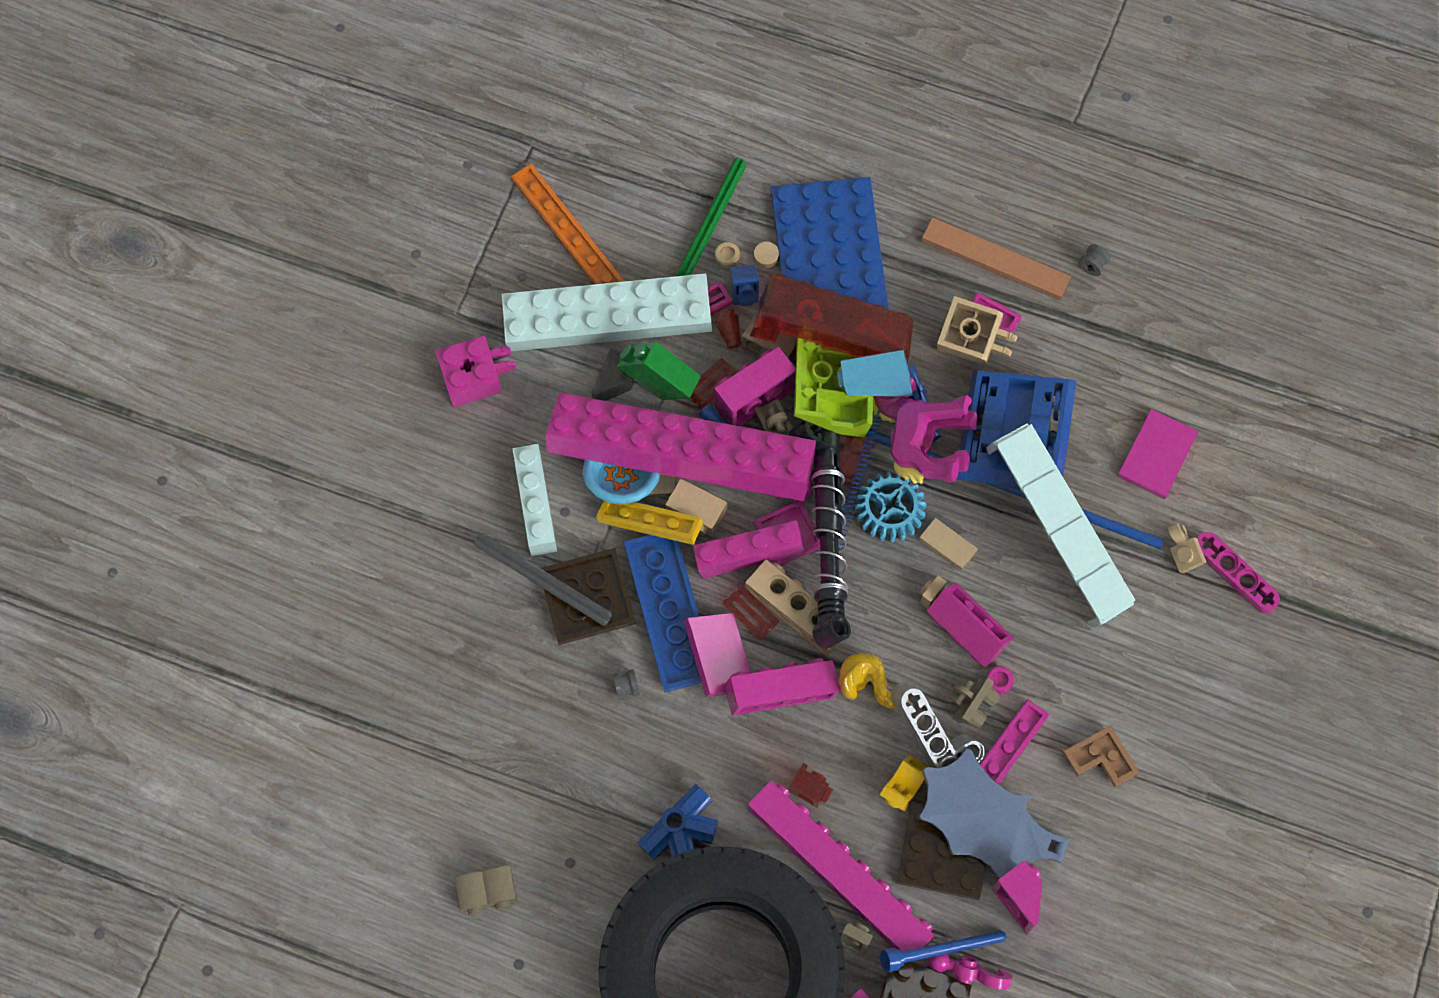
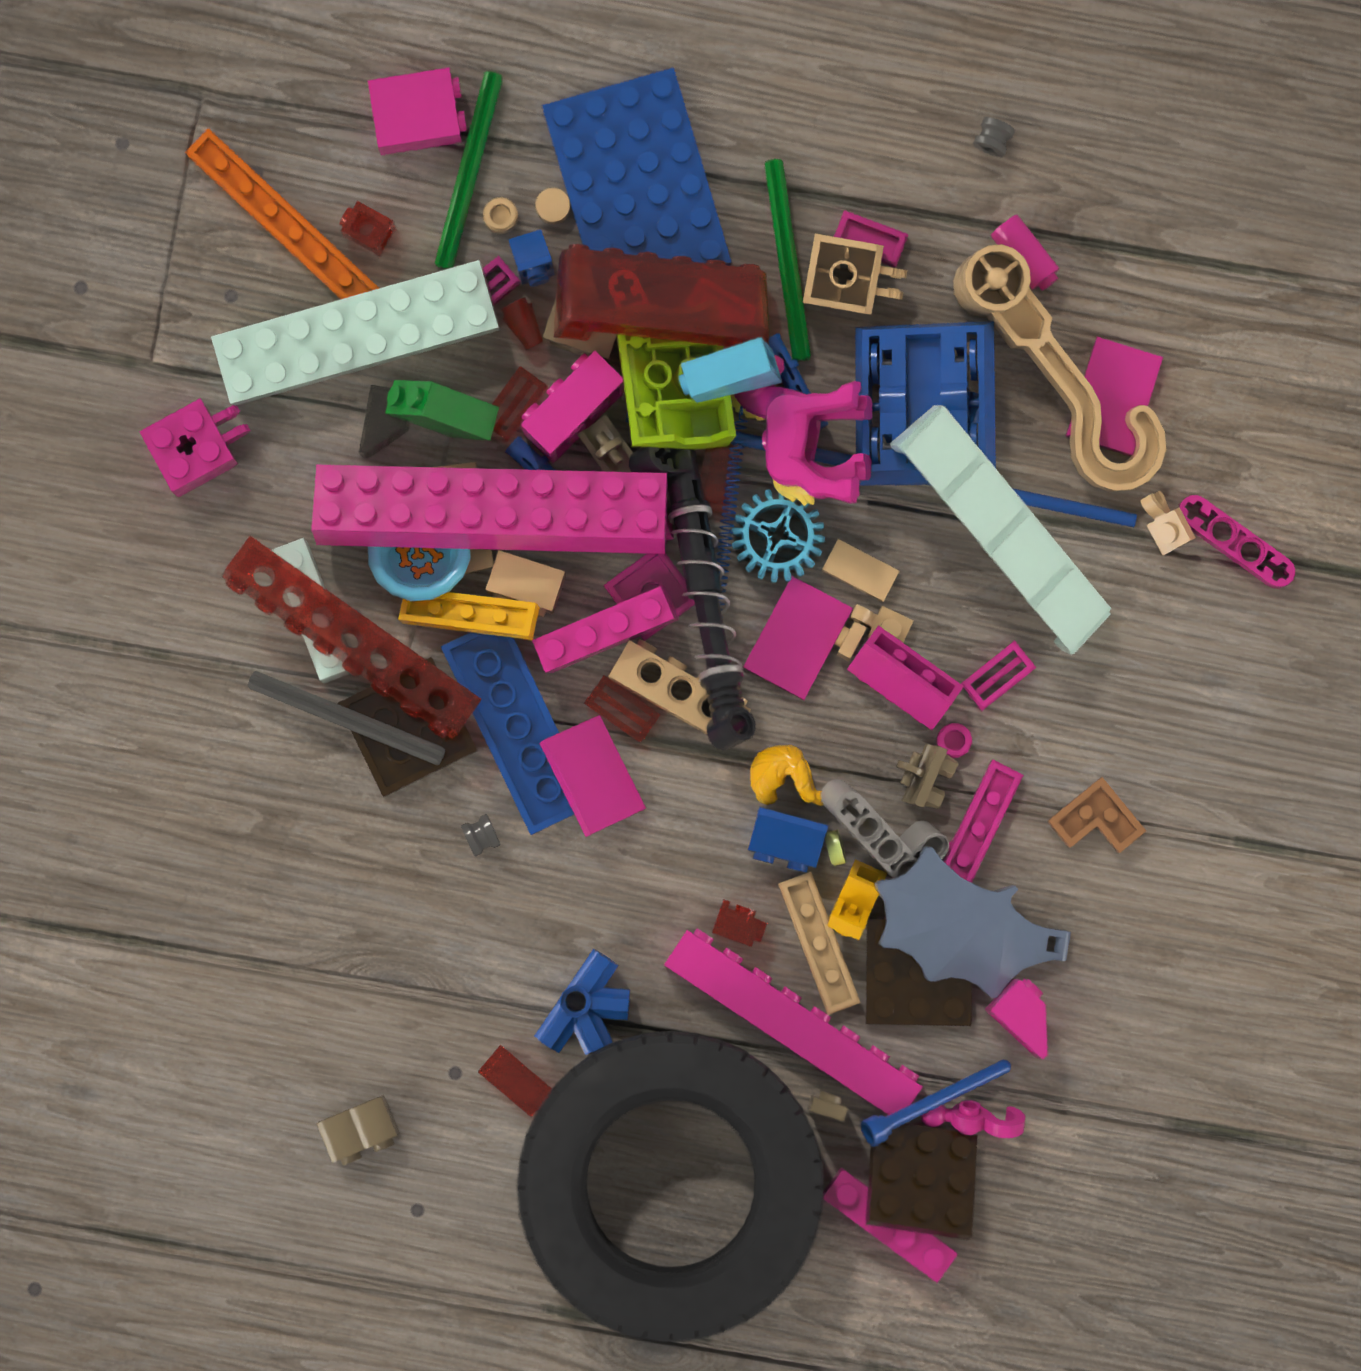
camera: 10 degrees left, 15 degrees up
(519, 465) = (343, 619): none -> clear red brick
(613, 873) = (515, 1080): none -> clear red tile
(630, 237) = (363, 215): none -> clear red brick
(681, 175) = (416, 111): none -> dark pink brick
(782, 687) = (679, 806): dark pink brick -> none
(860, 726) = (787, 839): none -> blue slope
(871, 814) = (819, 943): none -> tan tile
(892, 584) = (797, 638): none -> dark pink tile
(895, 742) = (835, 847): none -> yellowish green tile
(930, 314) = (787, 260): none -> green axle
(963, 580) = (886, 618): none -> tan plate
(996, 259) = (861, 156): nougat tile -> none
(1021, 649) = (1021, 657): none -> dark pink tile
(1082, 357) = (996, 287): none -> tan piece
(1106, 342) = (1018, 236): none -> dark pink brick

